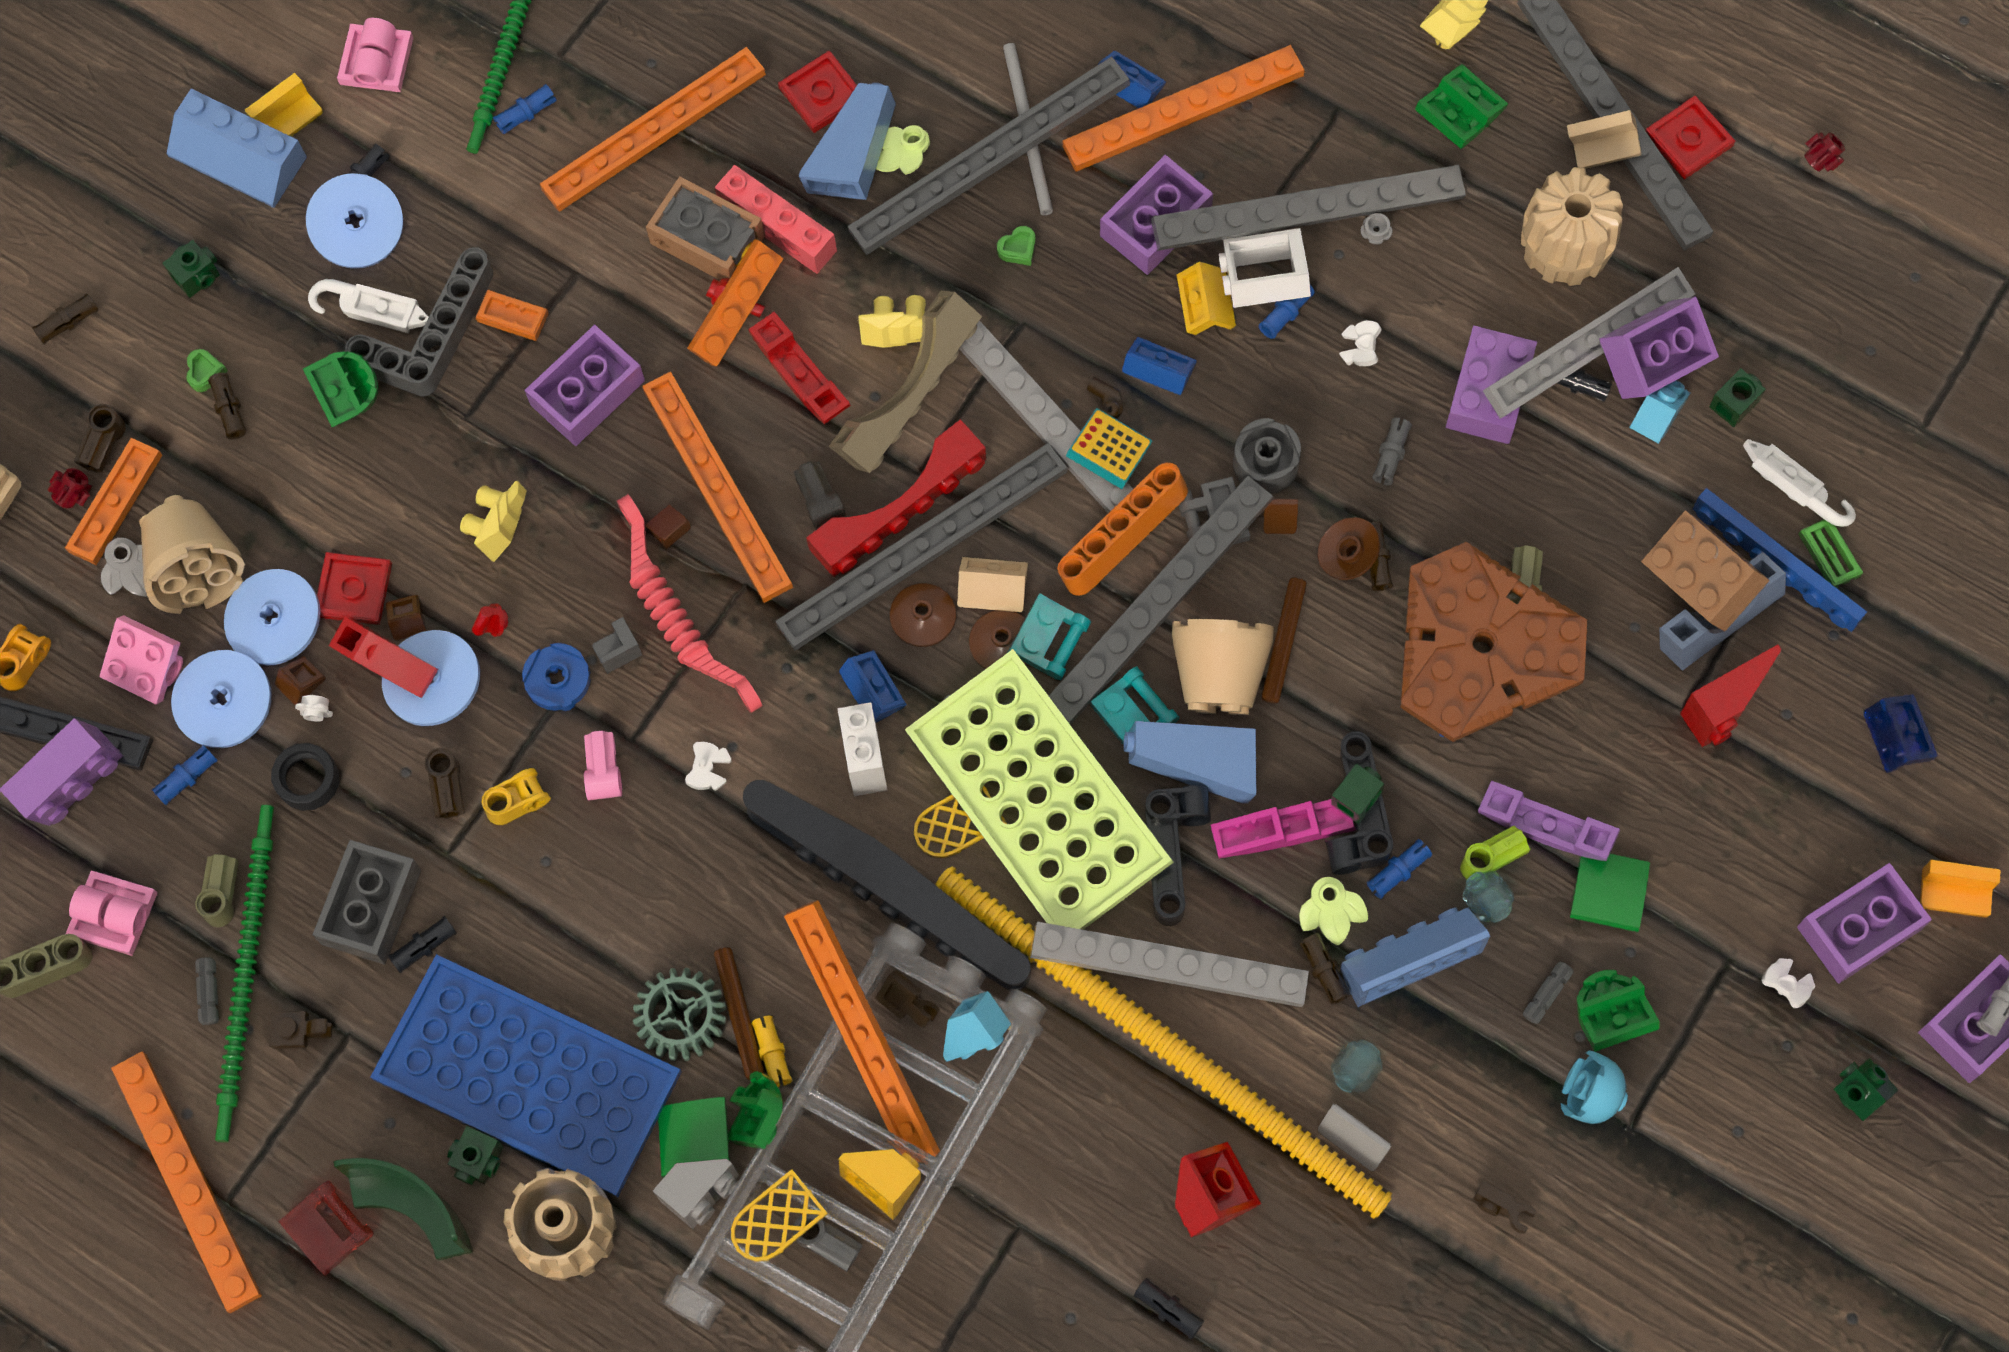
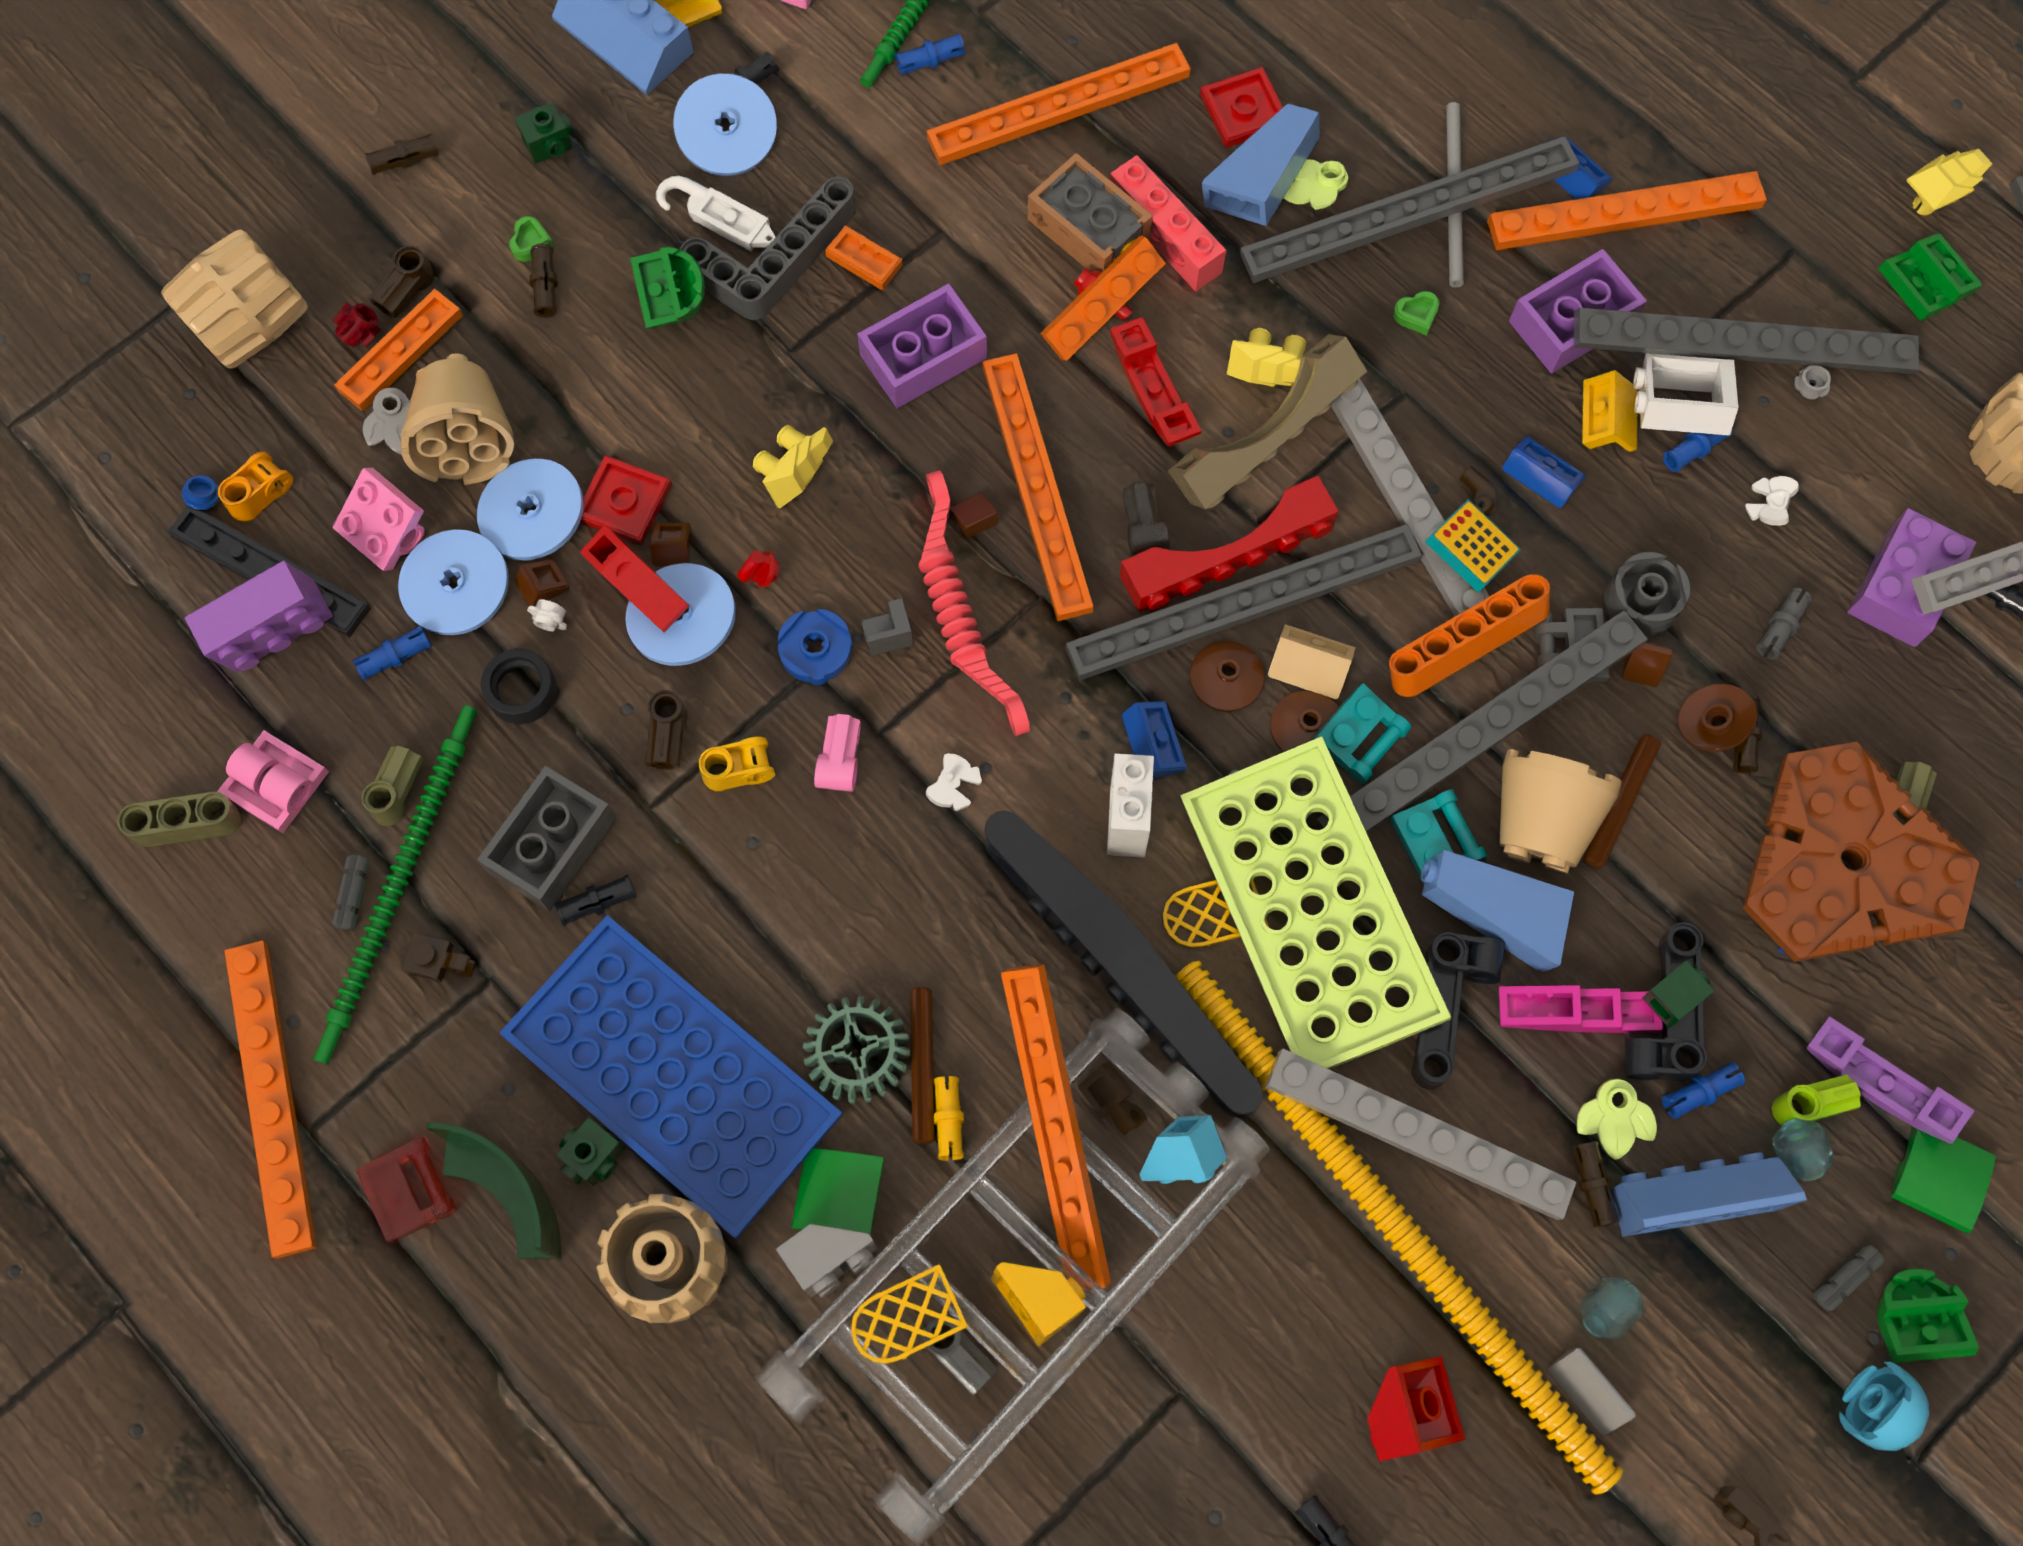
camera: 10 degrees right, 0 degrees up
(759, 1112) = (916, 1187): green slope -> none

